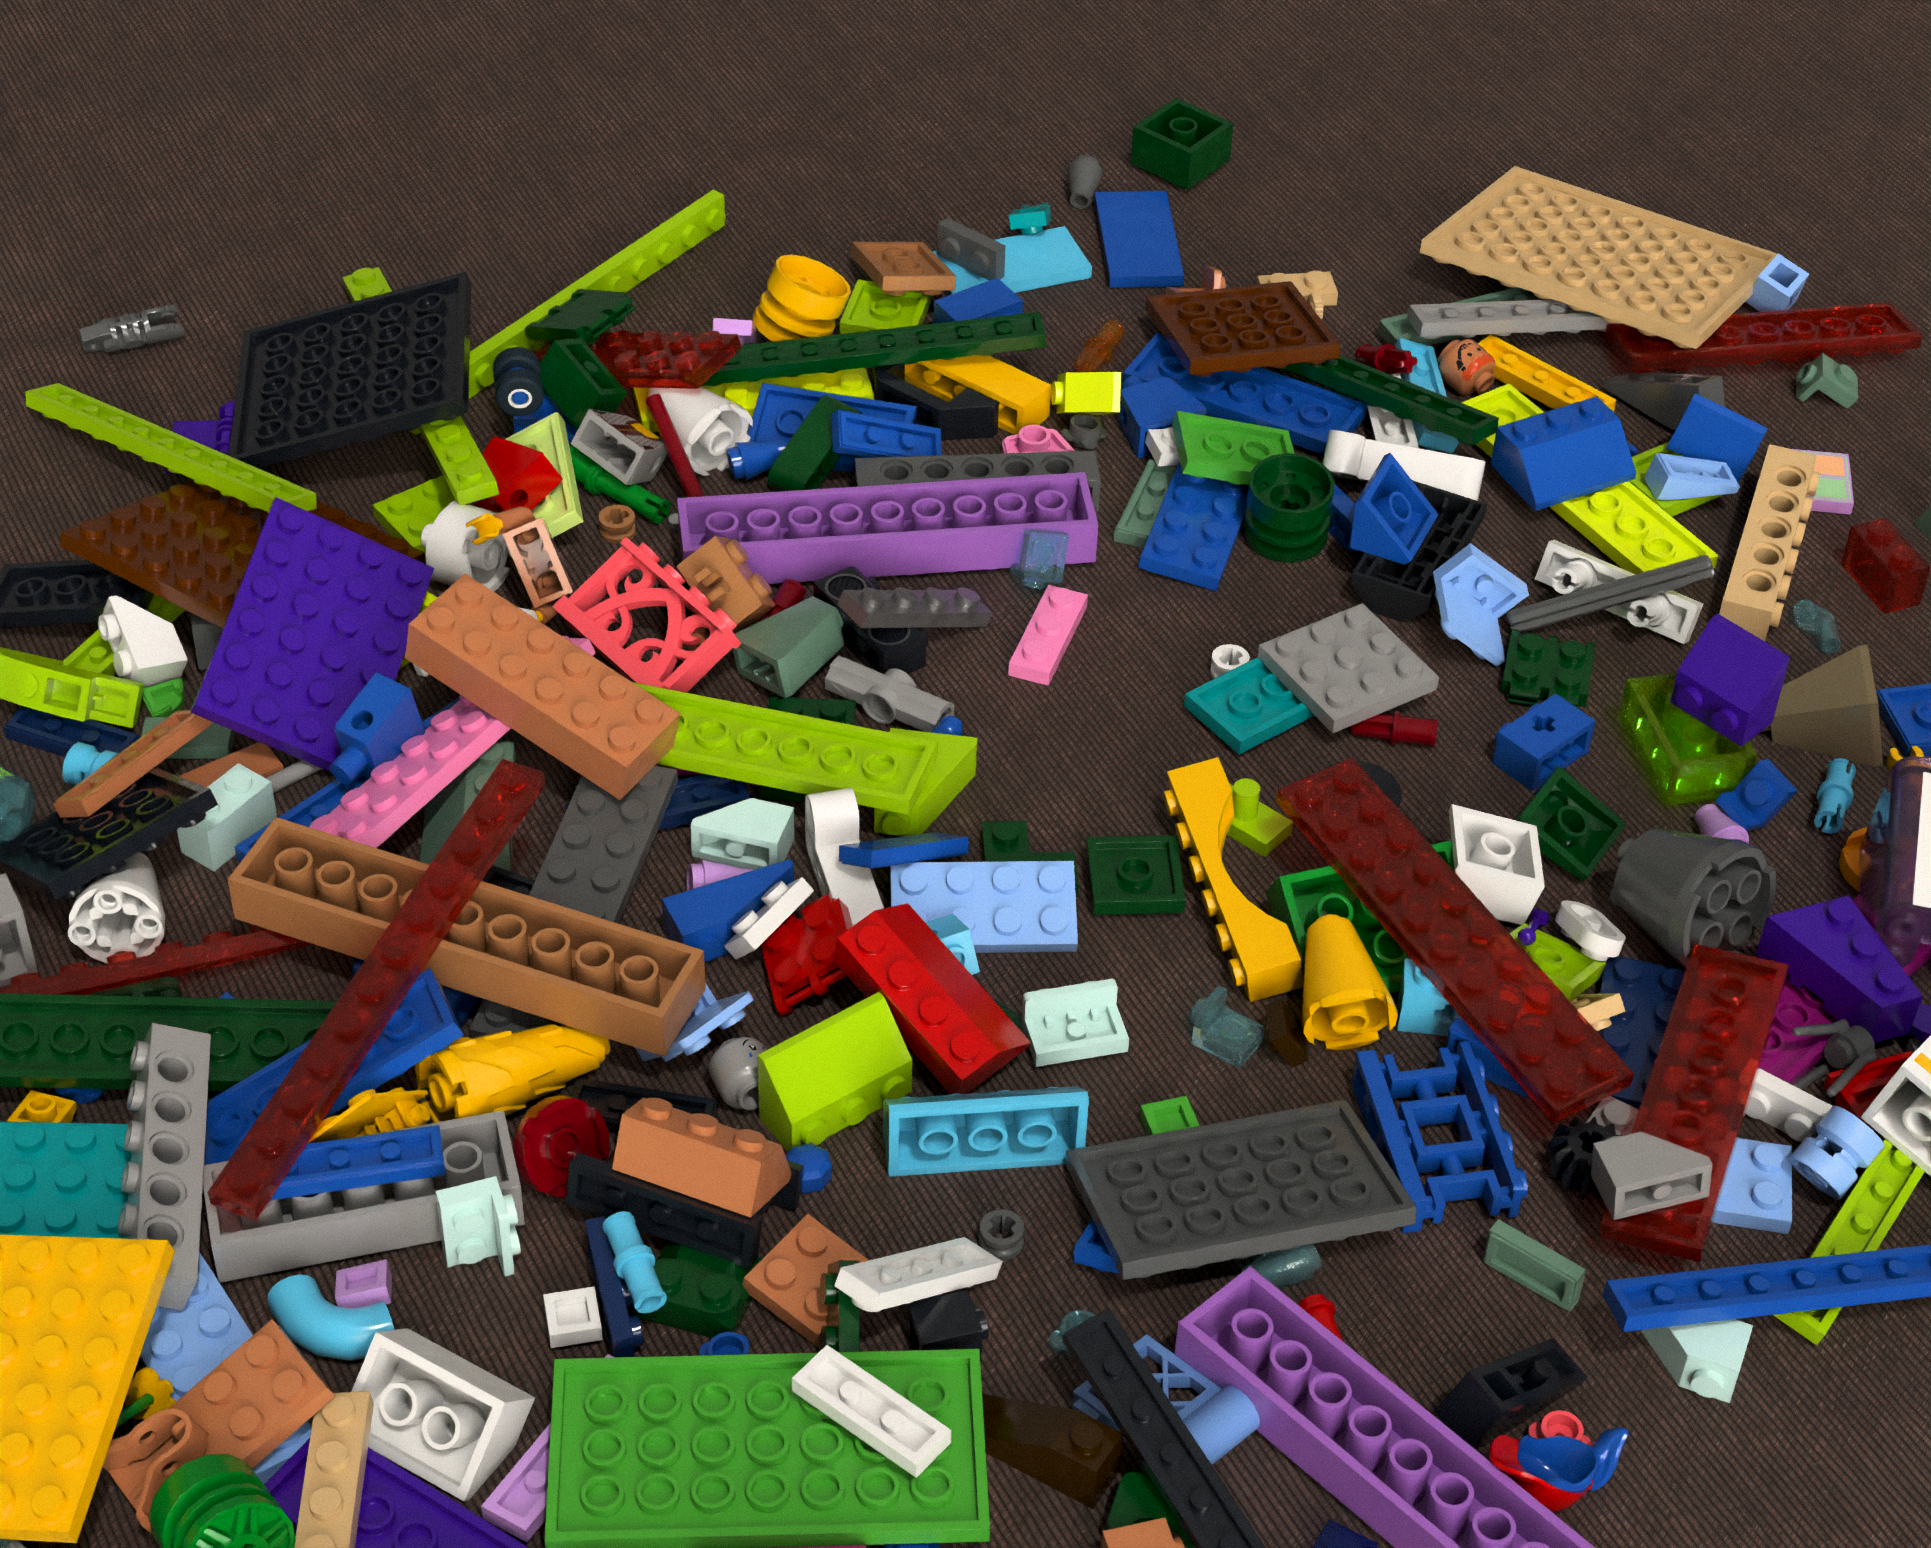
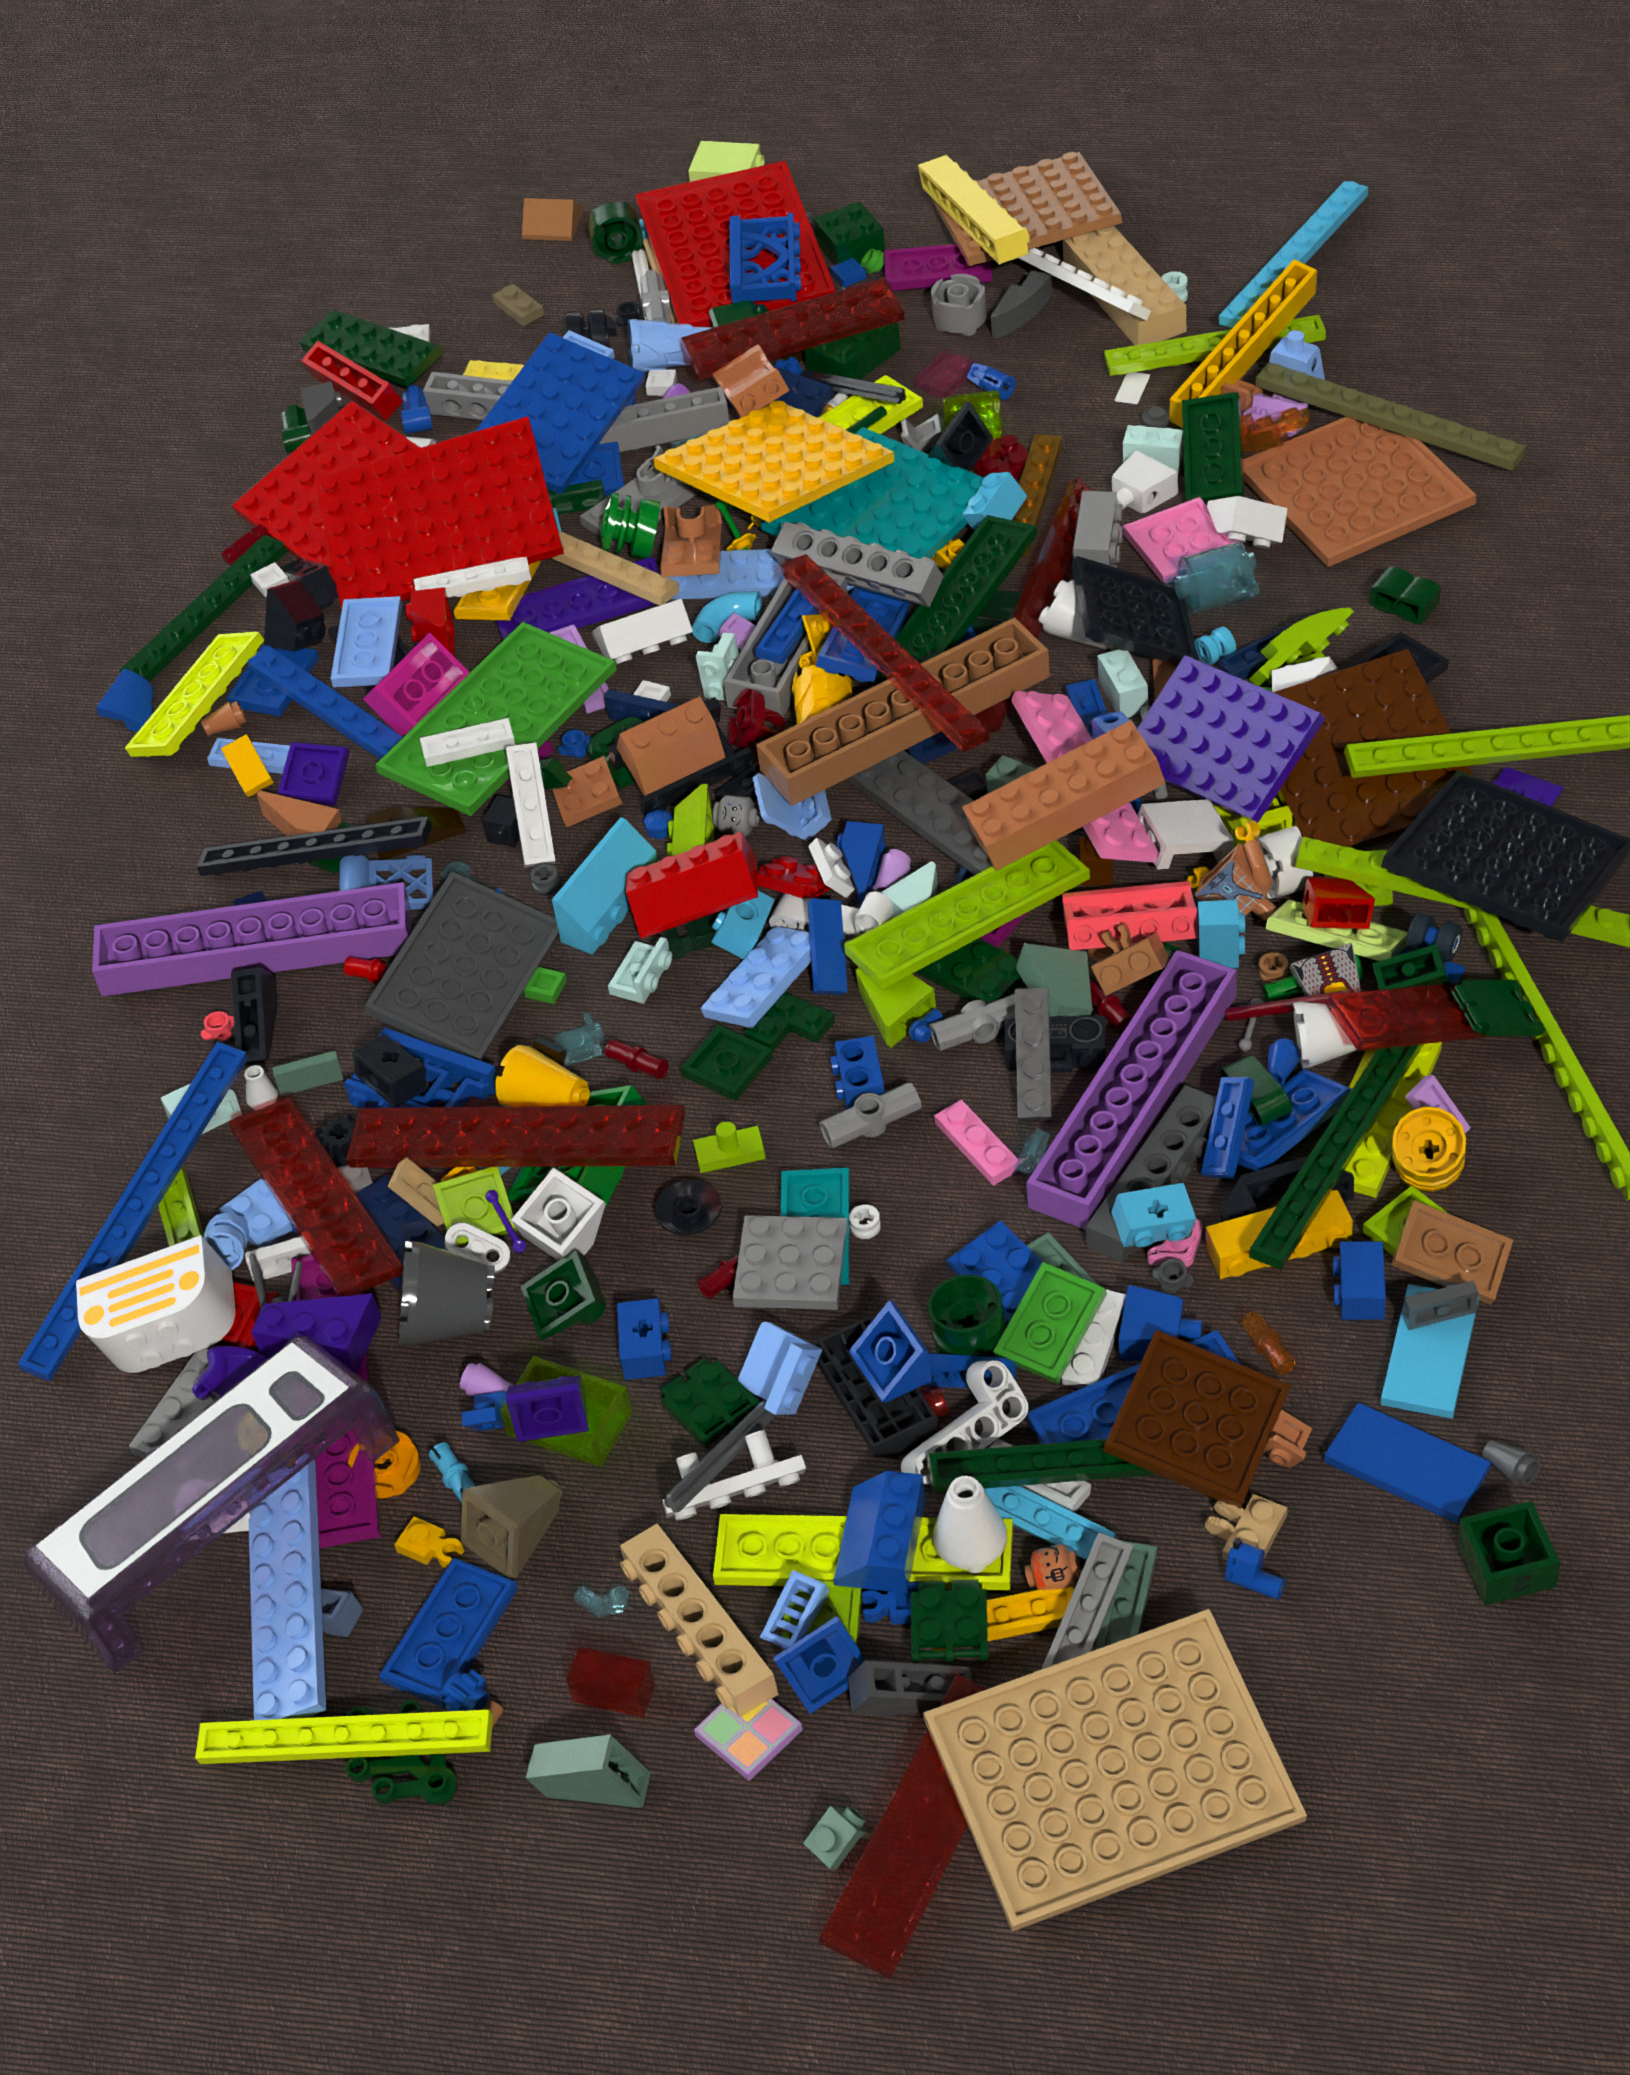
camera: 135 degrees right, 5 degrees up
(130, 764) = (1181, 633): nougat tile -> none
(613, 523) = (1220, 932): none -> medium azure brick
(634, 1262) = (639, 708): medium azure pin -> none
(1030, 218) = (1472, 1383): teal plate -> none
(1050, 751) = (858, 1068): none -> blue brick
(1053, 427) = (1153, 1215): none -> medium azure brick
(1087, 393) = (1194, 1278): neon yellow slope -> none
(1099, 714) = (870, 1115): none -> light grey piece
(1203, 955) = (636, 1059): none -> dark red pin
(1259, 944) = (717, 1099): yellow arch -> none
(1341, 269) = (1245, 1570): none -> blue piece
(1386, 358) = (1098, 1510): dark red axle -> none
(1473, 1125) = (390, 1070): none -> black brick
(1506, 380) = (969, 1527): none -> white cone
(1558, 1467) = (199, 989): blue hair -> none
(1588, 379) = (949, 1620): none -> dark green plate
(1592, 1302) = (259, 1089): none -> white cone
(1647, 1174) = (283, 1115): light grey slope -> none
(1777, 286) = (967, 1876): light blue brick -> none

